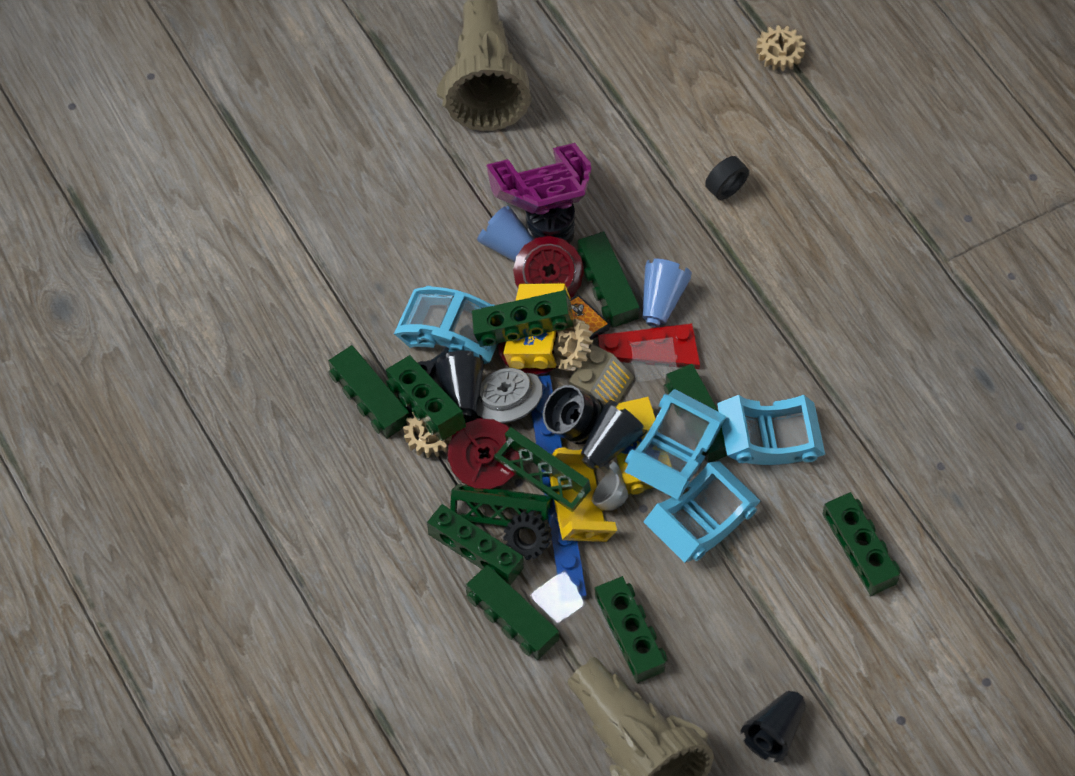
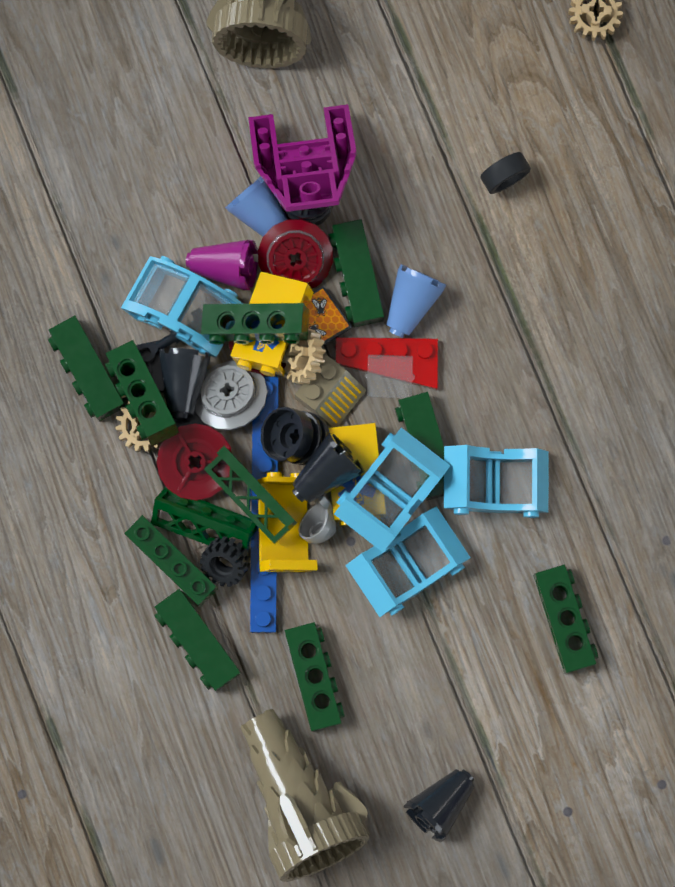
camera: 10 degrees right, 20 degrees up
(487, 282) = (226, 263): none -> magenta cone
(558, 599) = (245, 633): clear piece -> none

